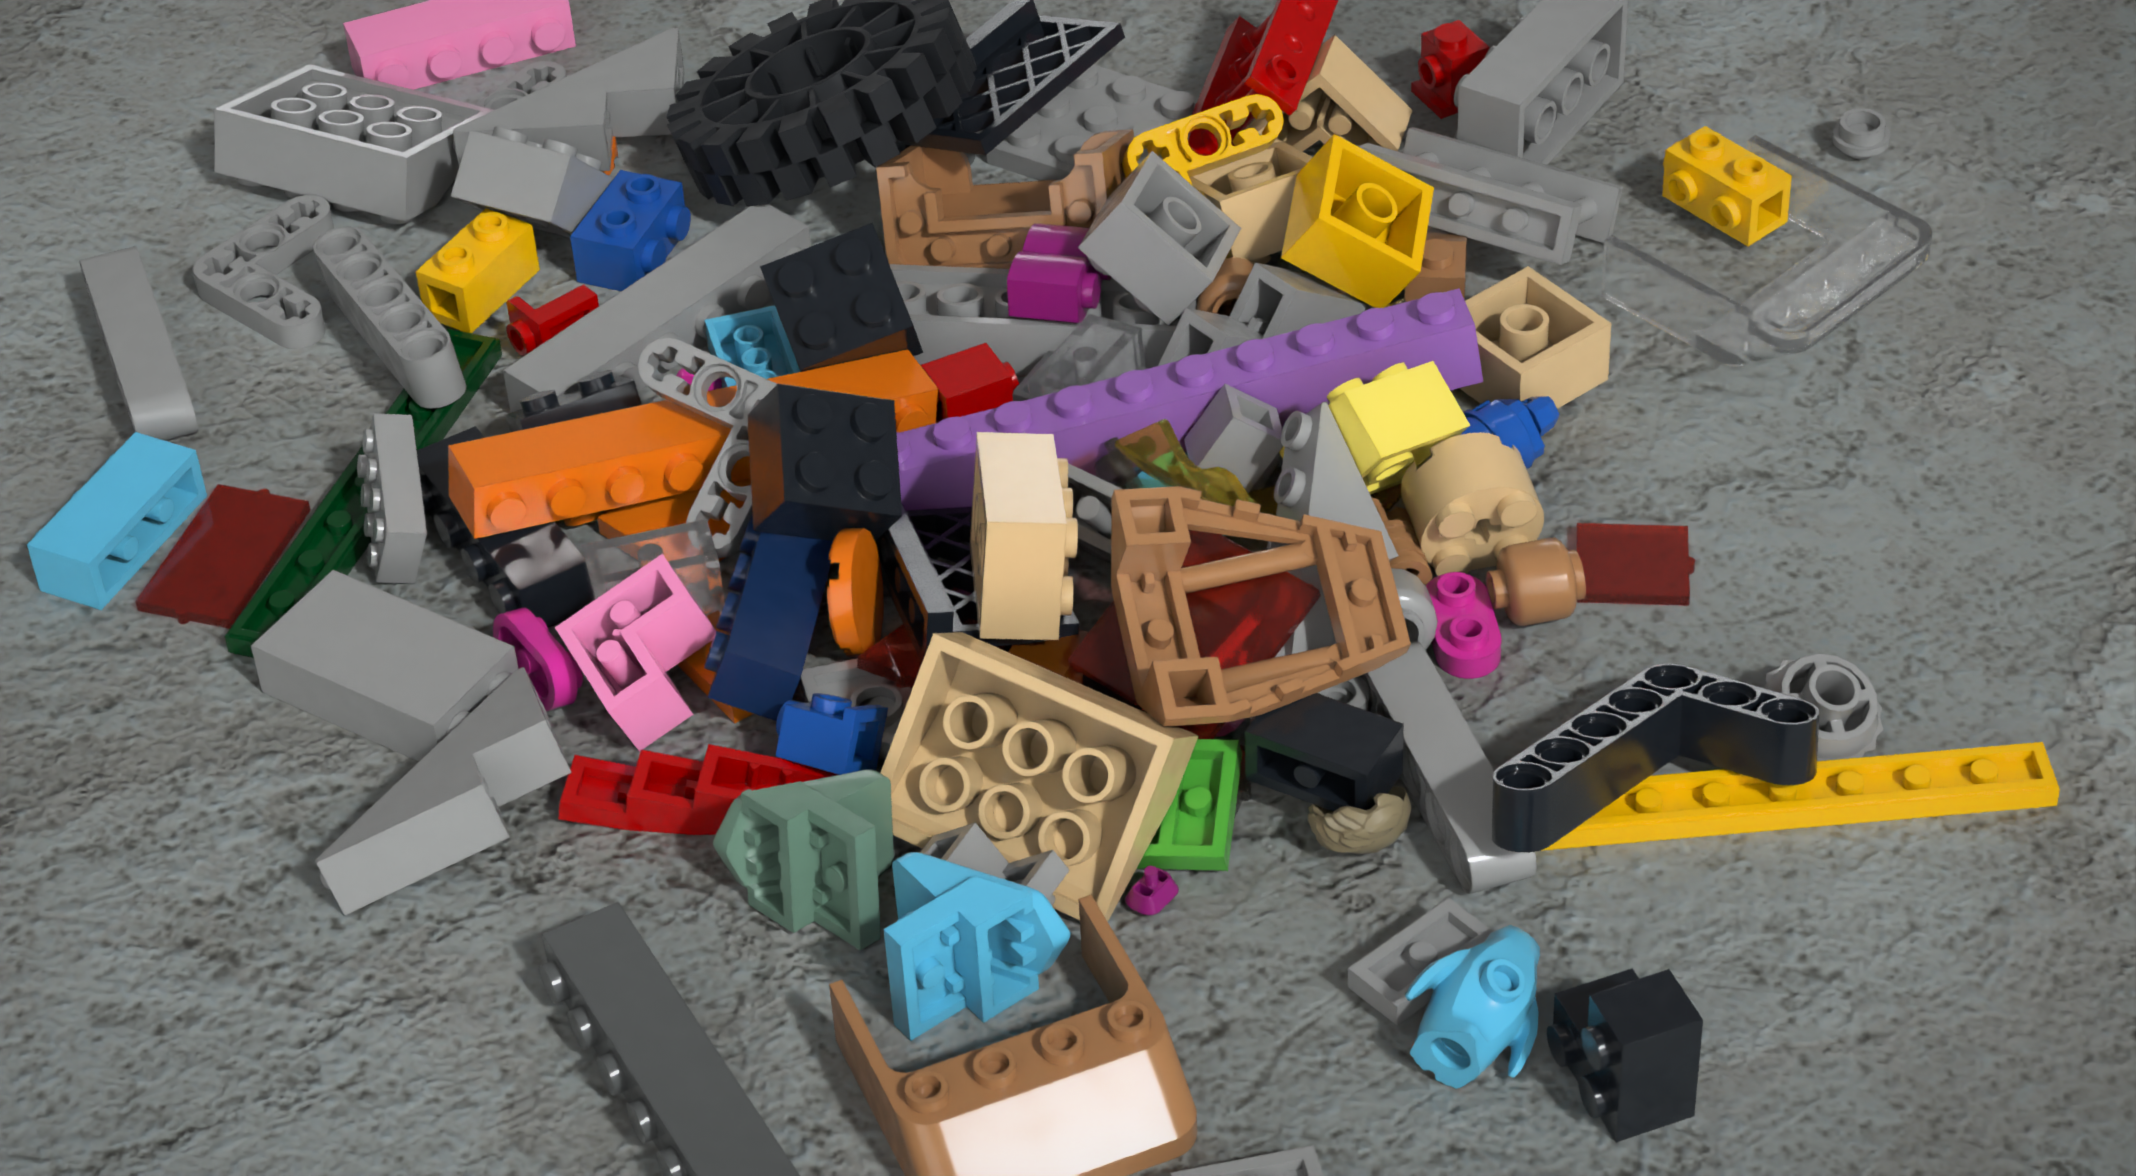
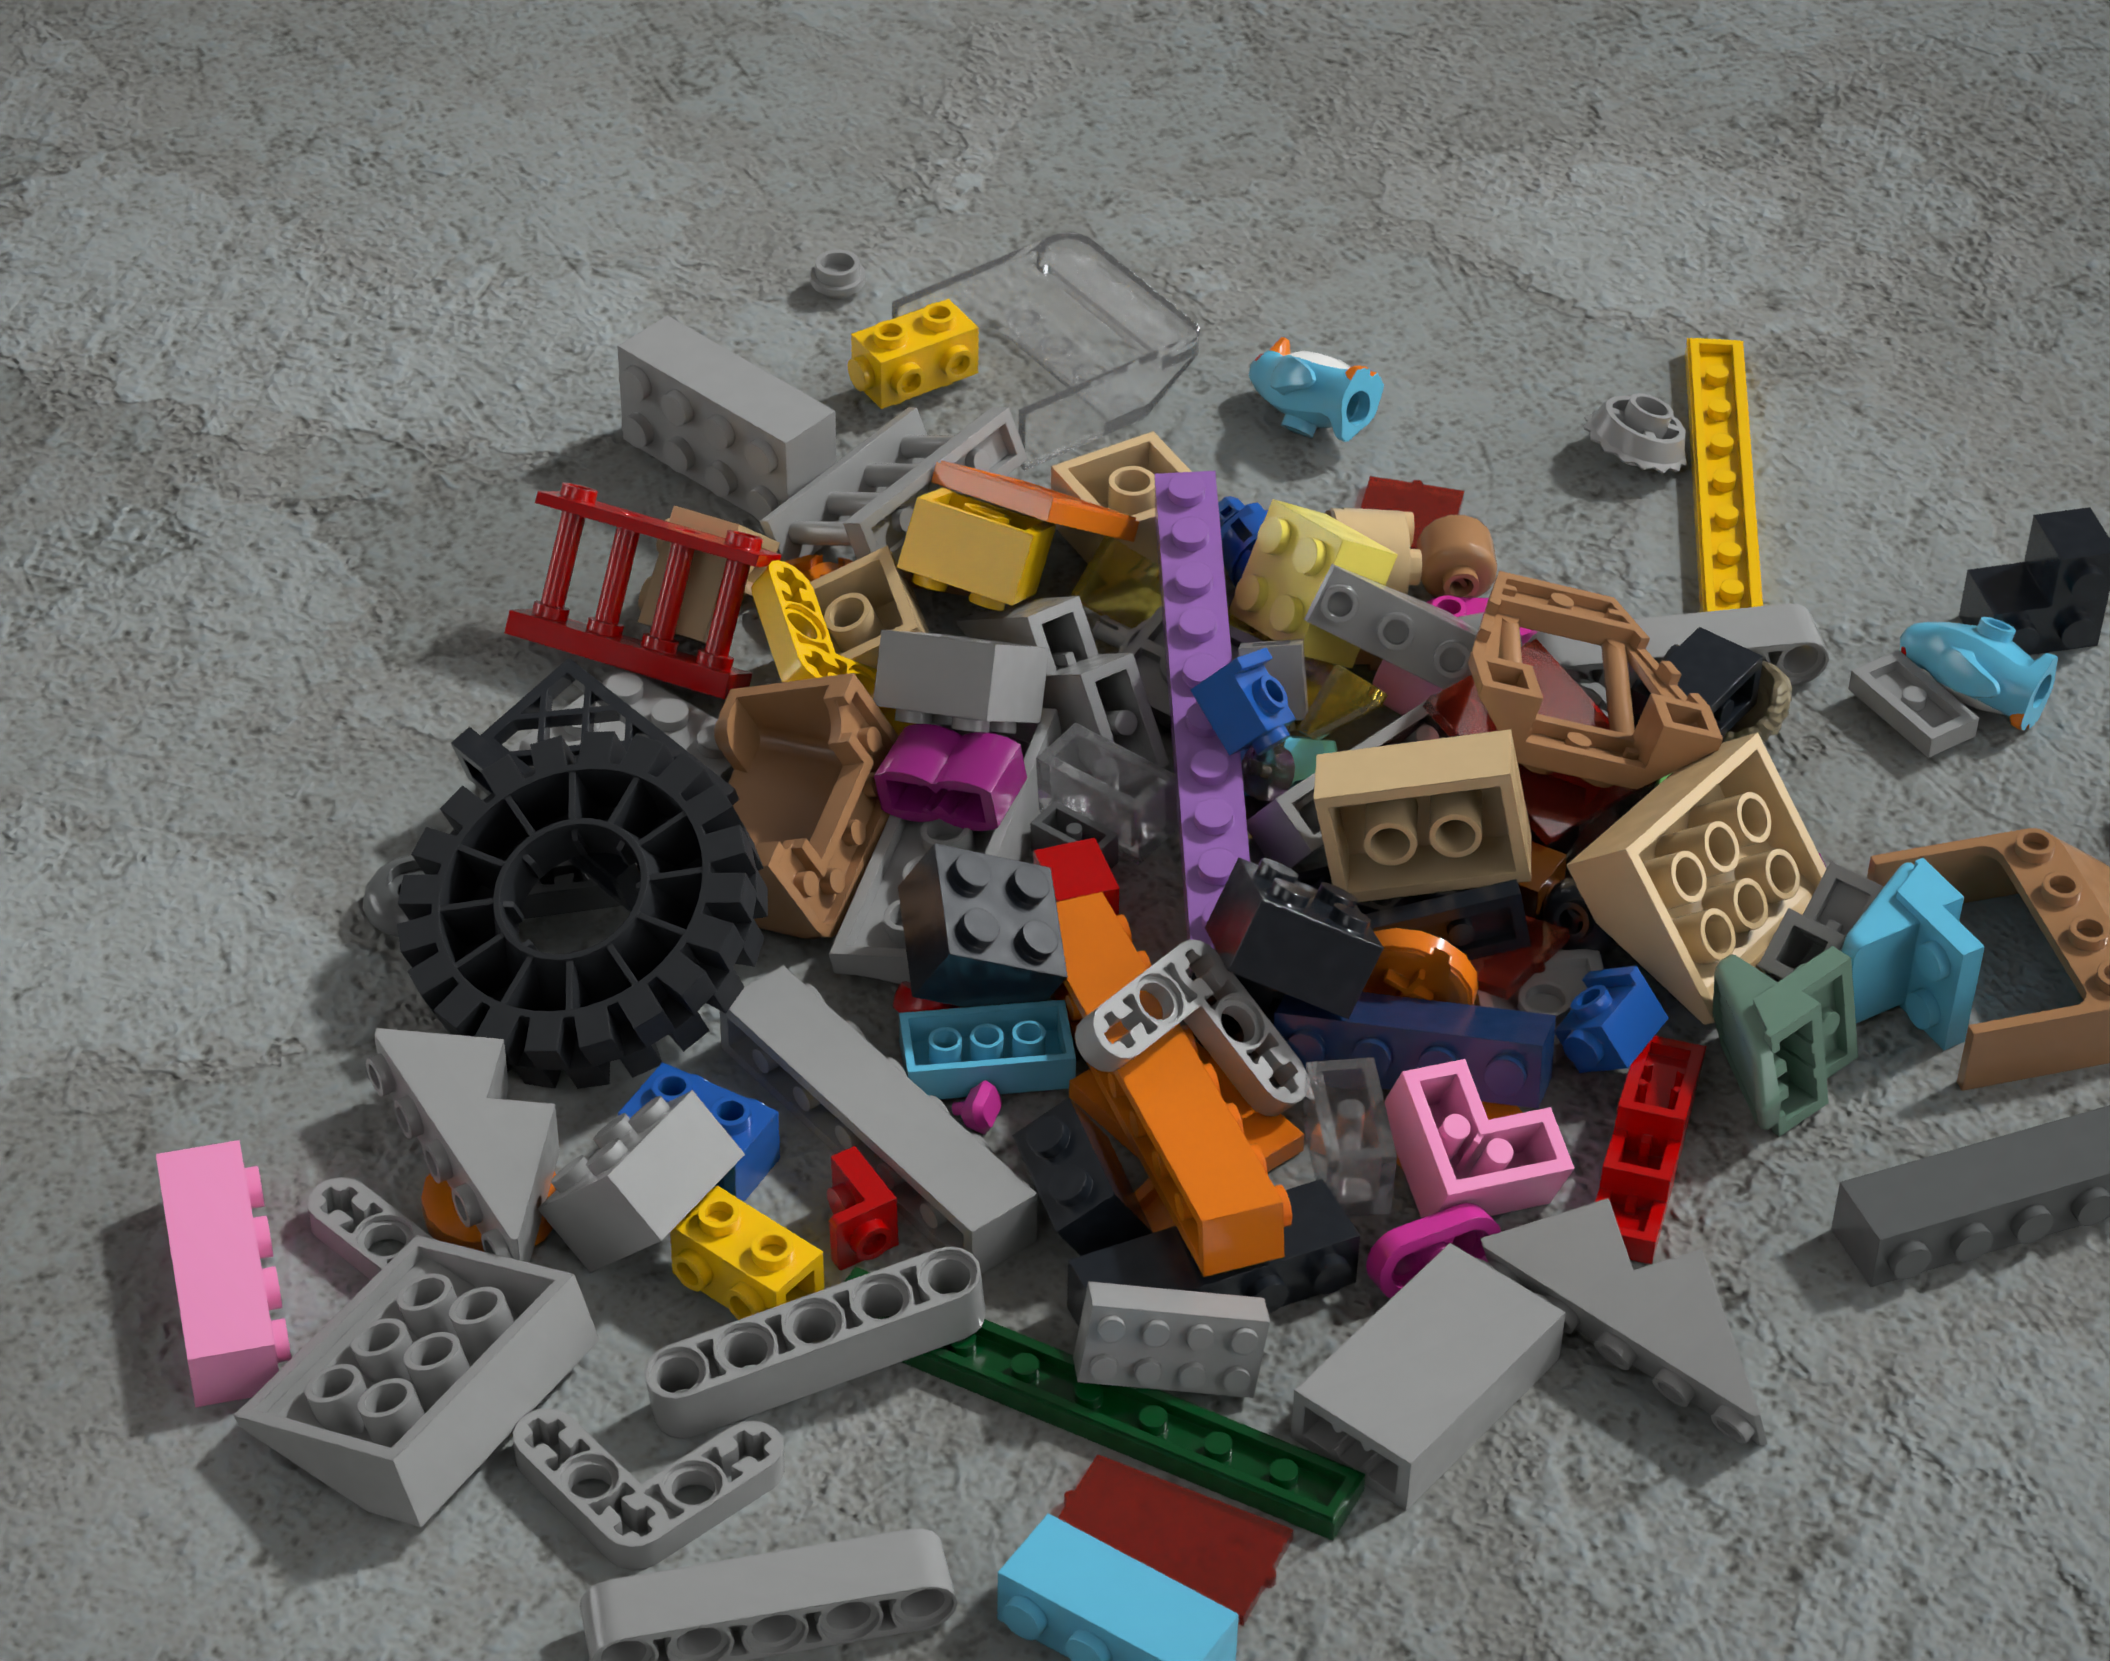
camera: 85 degrees left, 0 degrees up
(1145, 370) = (1246, 704): none -> blue brick
(1437, 242) = (1035, 500): none -> orange tile
(1445, 58) = (645, 481): red brick -> none
(1636, 733) = (1665, 514): black beam -> none
(1779, 451) = (1316, 390): none -> medium azure animal

